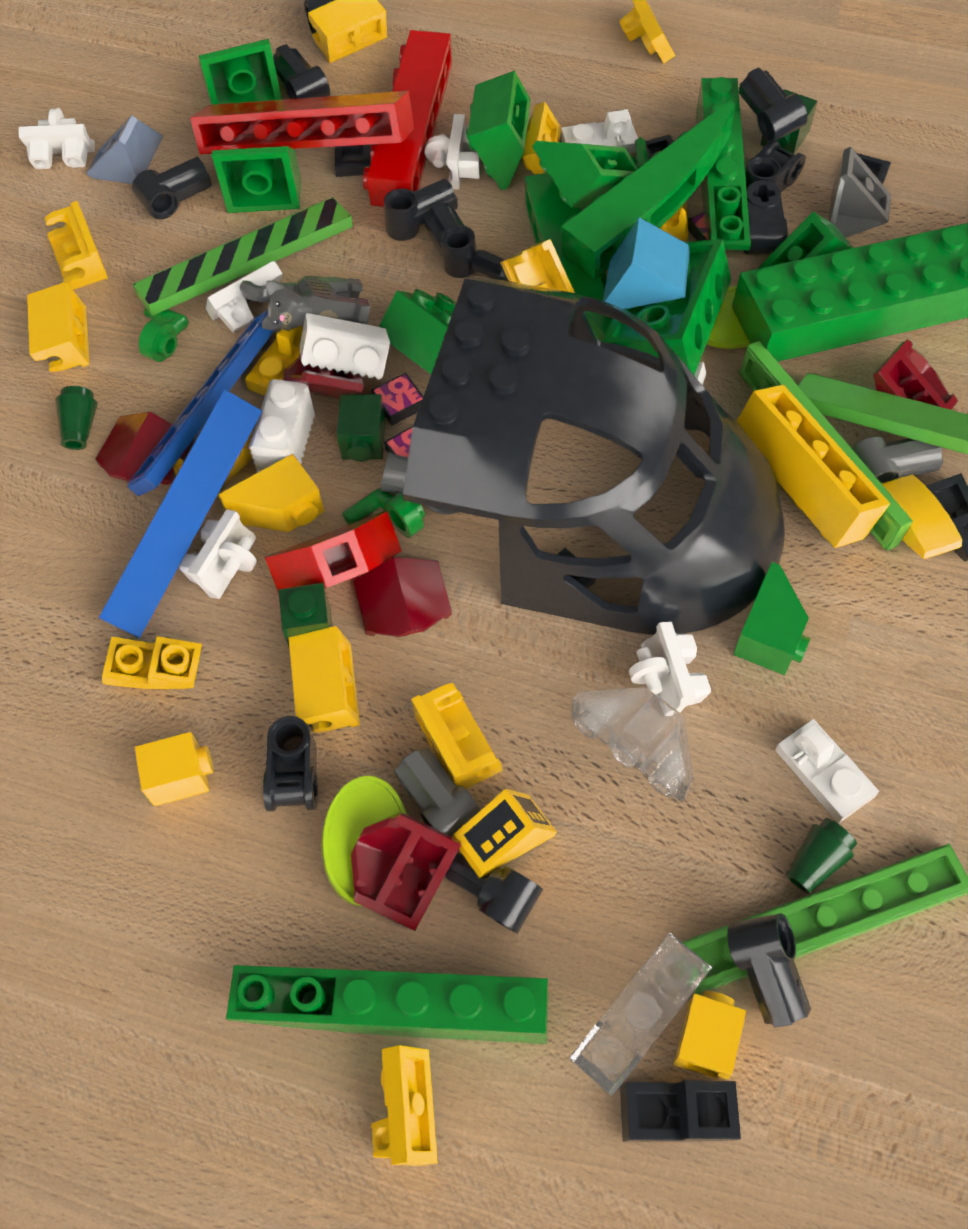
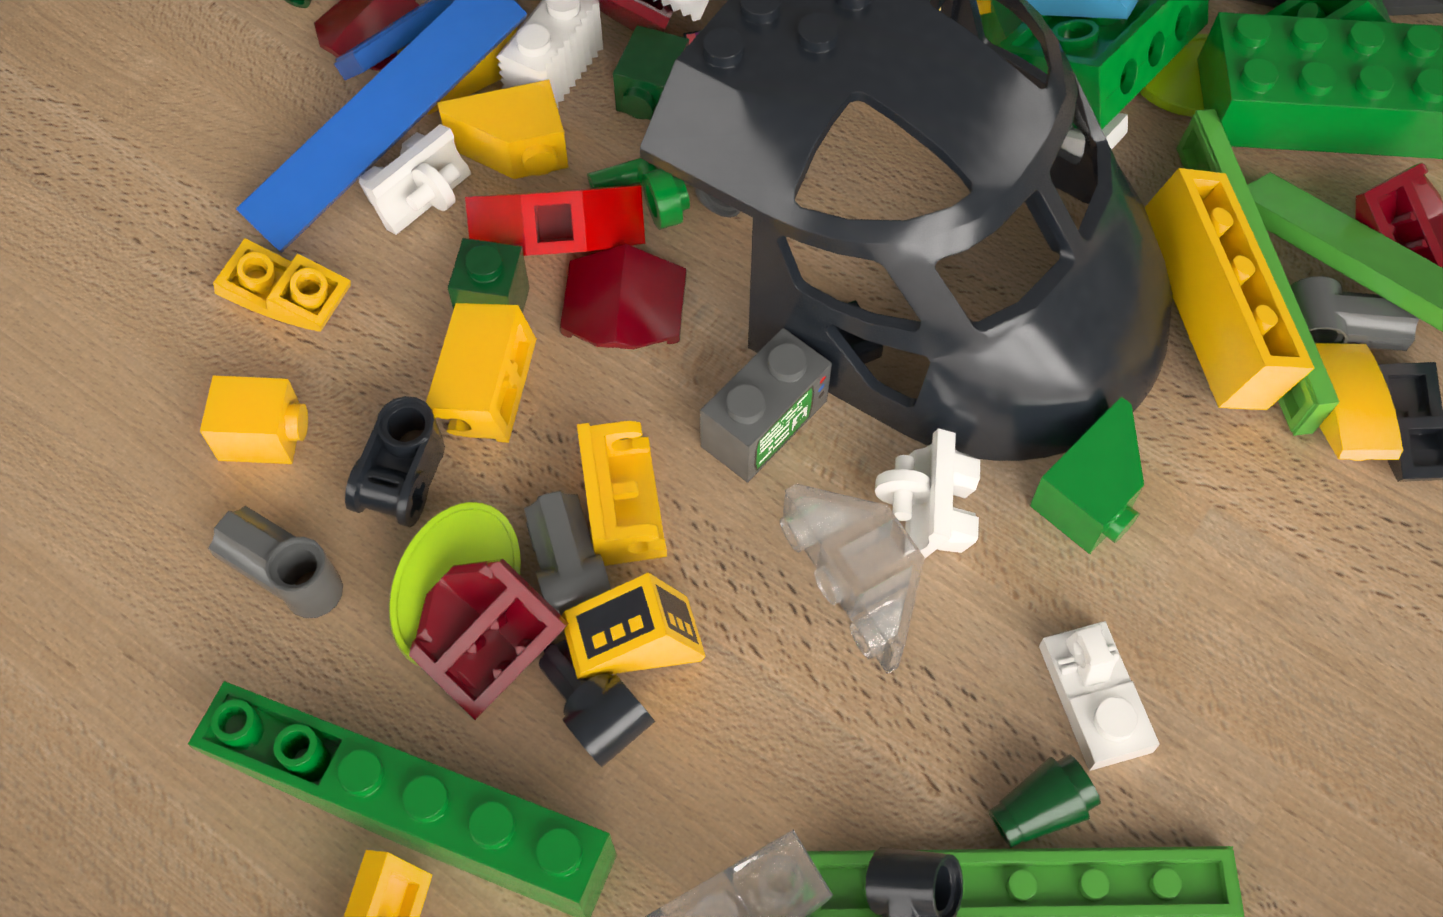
camera: 15 degrees right, 0 degrees up
(229, 864) = (277, 561): none -> dark grey piece
(533, 642) = (764, 404): none -> dark grey brick

